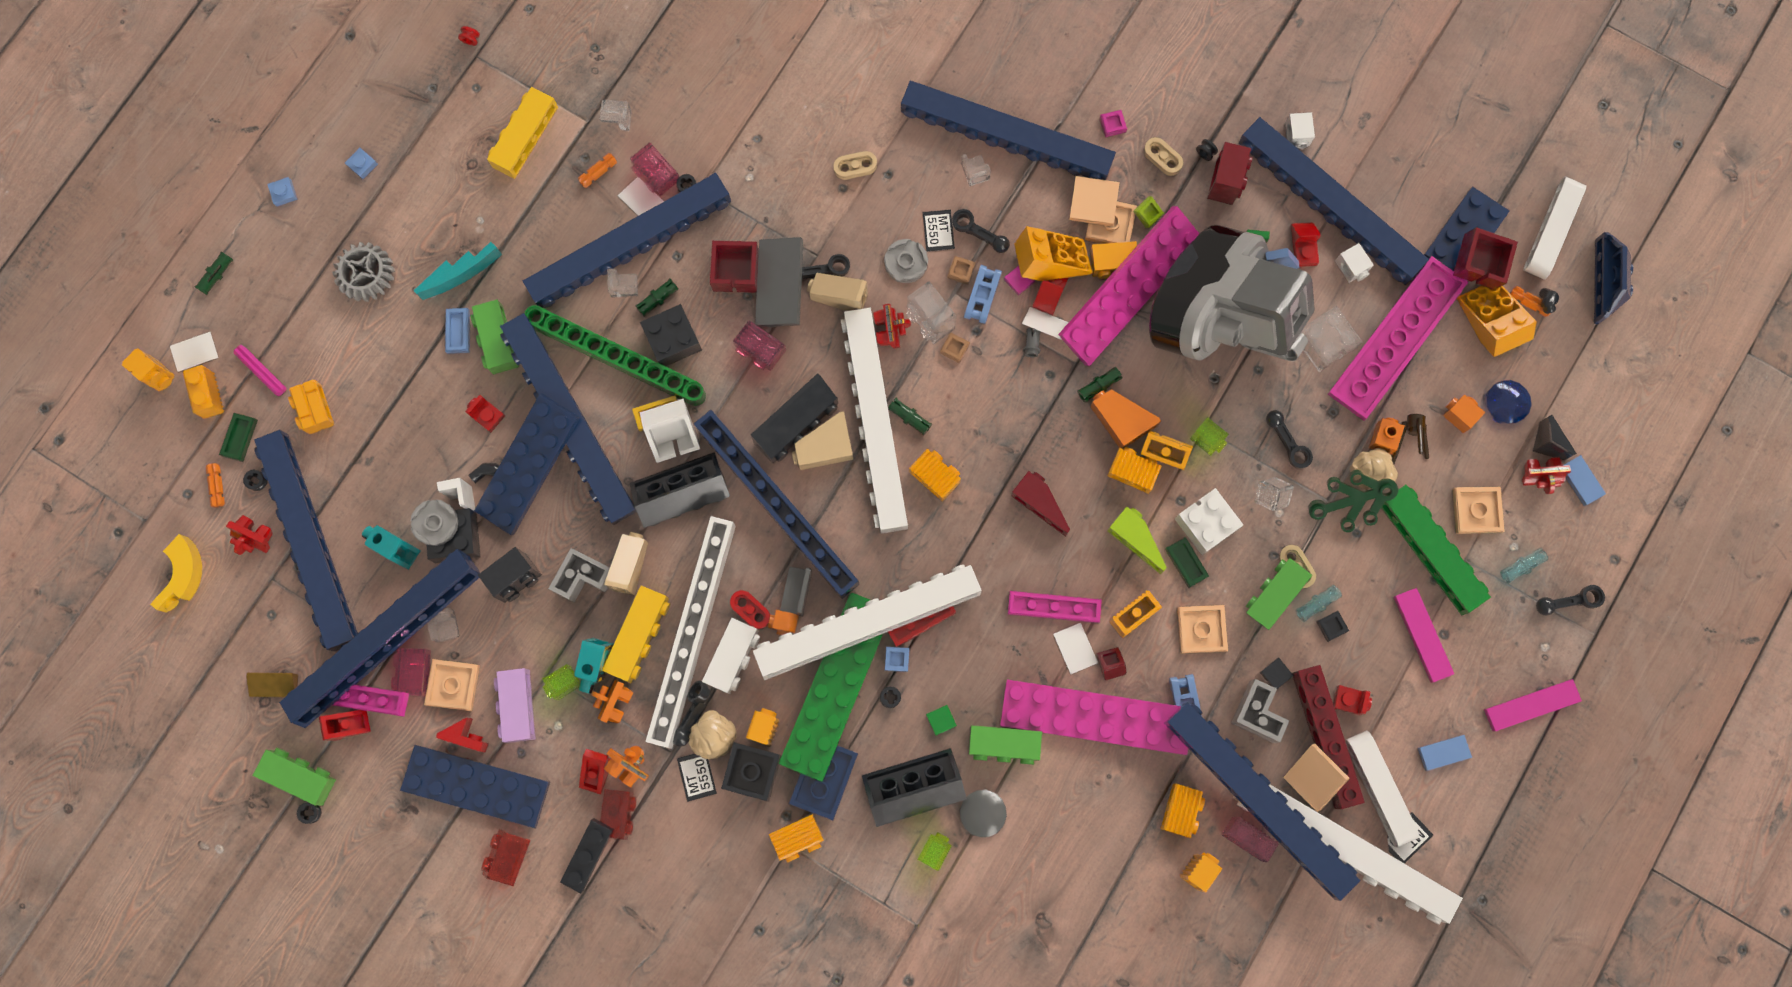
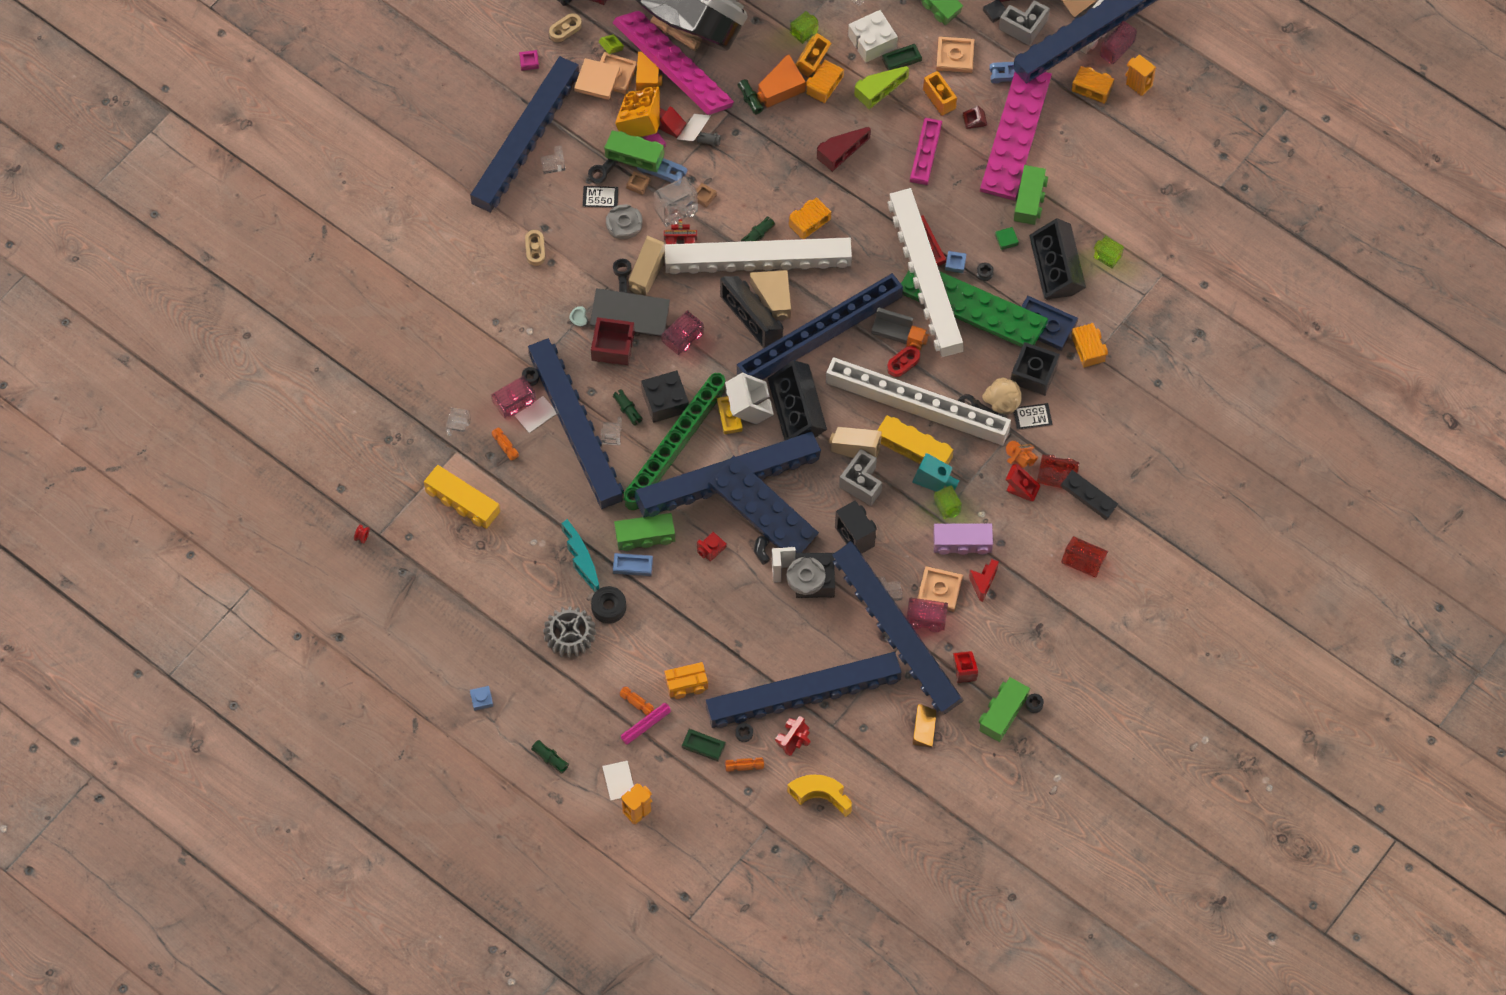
camera: 85 degrees left, 15 degrees down
(203, 392) = (660, 765): light orange brick -> none
(286, 357) = (636, 700): none -> orange axle
(361, 163) = (465, 632): medium blue plate -> none
(374, 700) = (948, 638): dark pink tile -> none
(390, 546) = (821, 615): teal torso -> none
(401, 297) = (608, 594): none -> black tyre
(475, 786) = (1024, 577): dark blue plate -> none
(608, 712) = (966, 467): orange hips -> none
(731, 656) = (939, 377): white brick -> none
(763, 727) = (1001, 354): light orange brick -> none
(770, 226) = (578, 316): none -> light aqua piece
(983, 813) = (1082, 217): dark grey dish -> none
(994, 255) = (634, 151): none -> bright green brick
(1075, 648) = (960, 142): white sticker -> none

